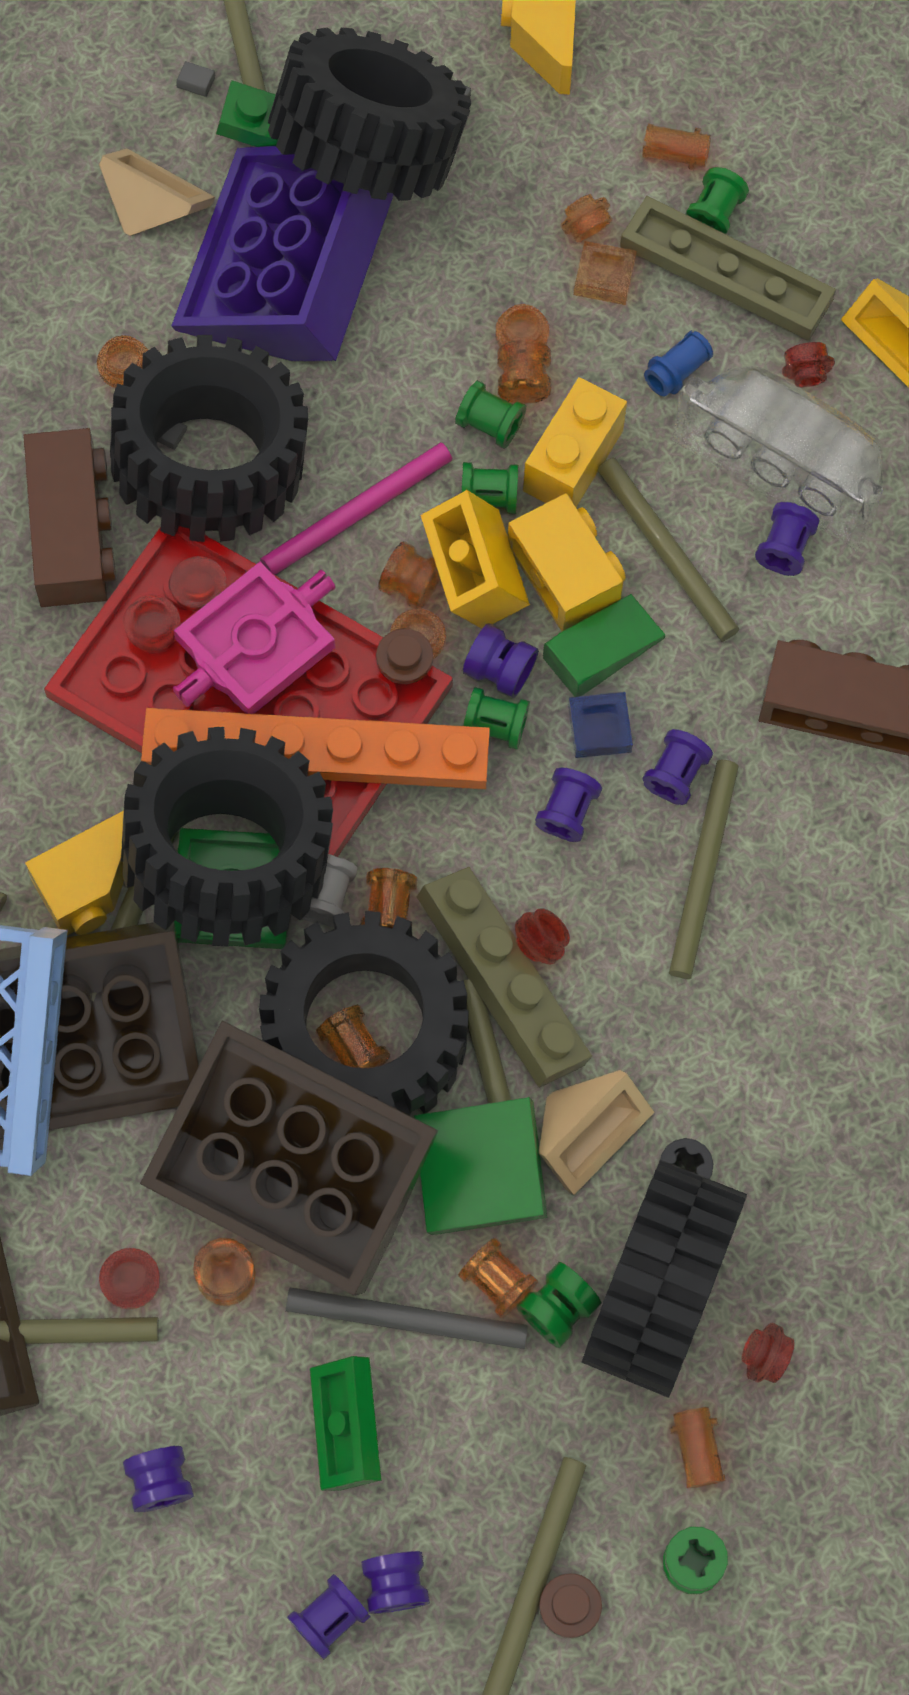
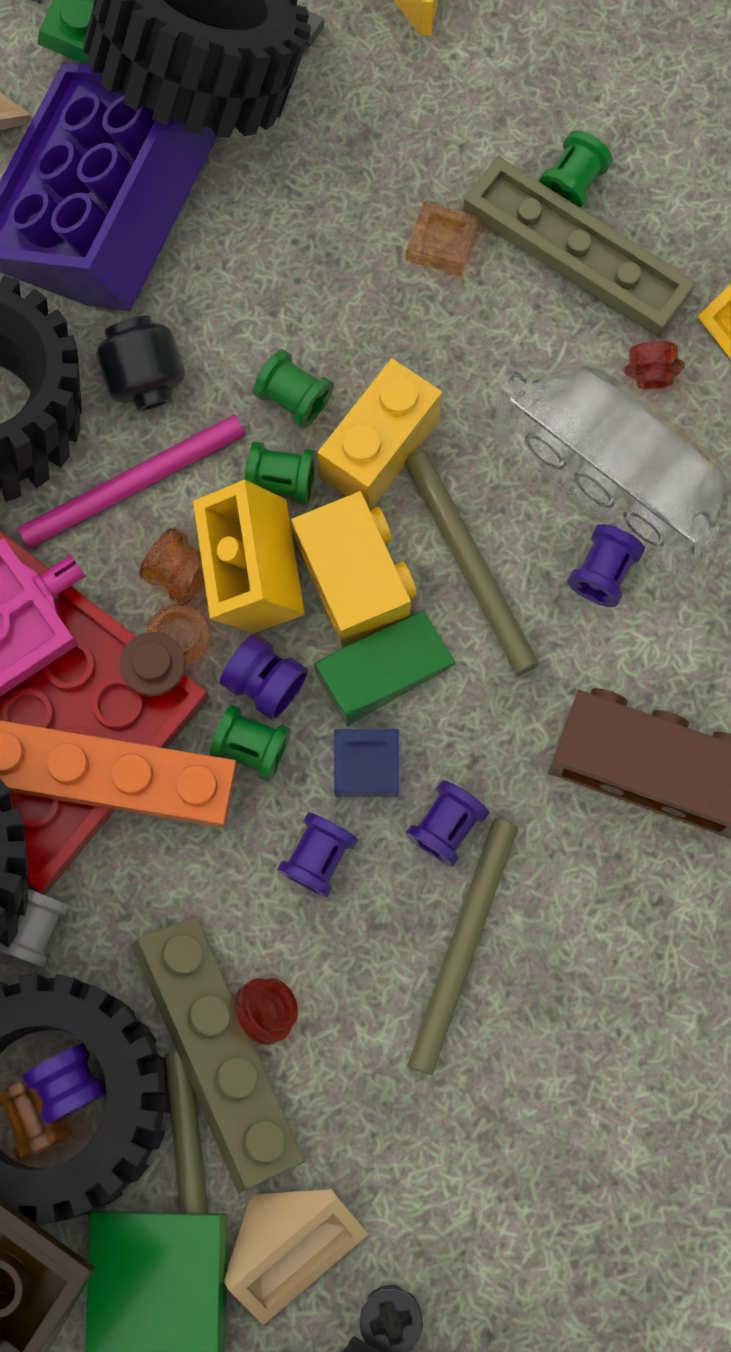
camera: 10 degrees right, 5 degrees up
(351, 404) = (140, 362): none -> black head
(382, 1004) = (64, 1084): none -> dark purple wheel
(390, 893) = (99, 950): clear orange bush -> none
(522, 323) = (342, 296): clear orange plate -> none
(524, 371) = (336, 343): clear orange wheel -> none
(586, 217) = (429, 174): clear orange plate -> none
(669, 371) = (497, 358): blue pin -> none
(677, 145) = (540, 103): clear orange pin -> none

